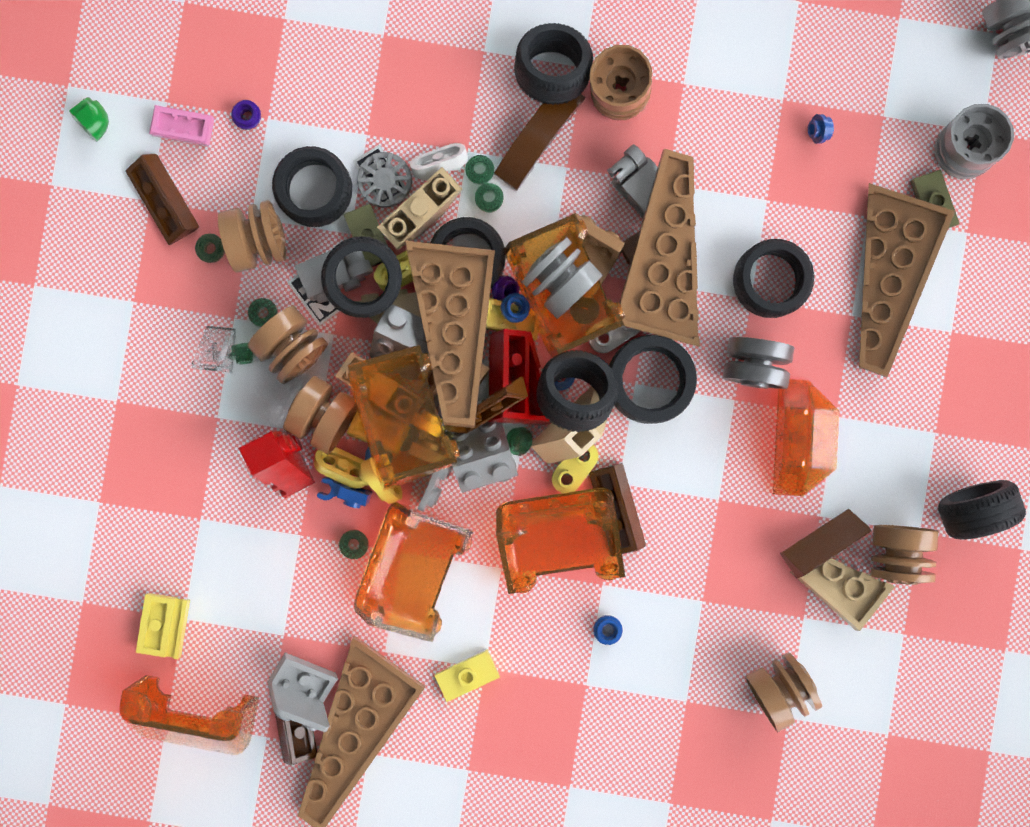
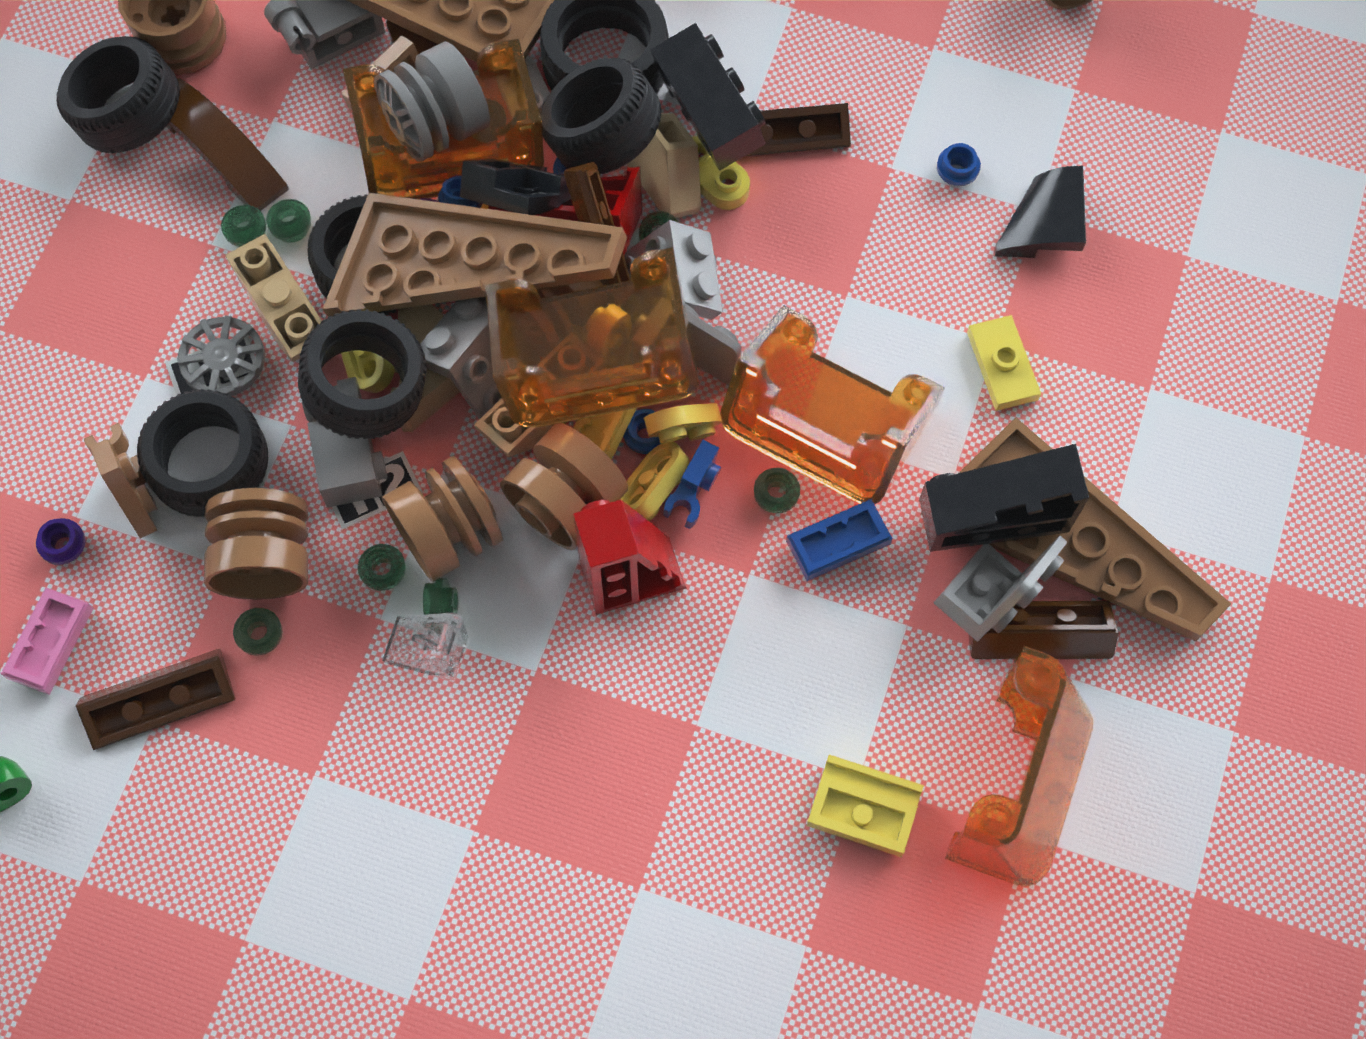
camera: 80 degrees left, 20 degrees down
(278, 142) = (124, 479): none -> medium nougat plate
(326, 588) = (839, 540): none -> blue plate
(353, 688) = (1005, 500): none -> black wedge
(364, 223) = (279, 397): olive plate -> none
(450, 157) = (214, 276): white plate -> none
(516, 346) = (513, 186): none -> black slope
(558, 536) = (810, 192): clear orange windscreen -> none
(578, 694) = (1048, 216): none -> black slope
(611, 459) = (709, 95): none -> black wedge

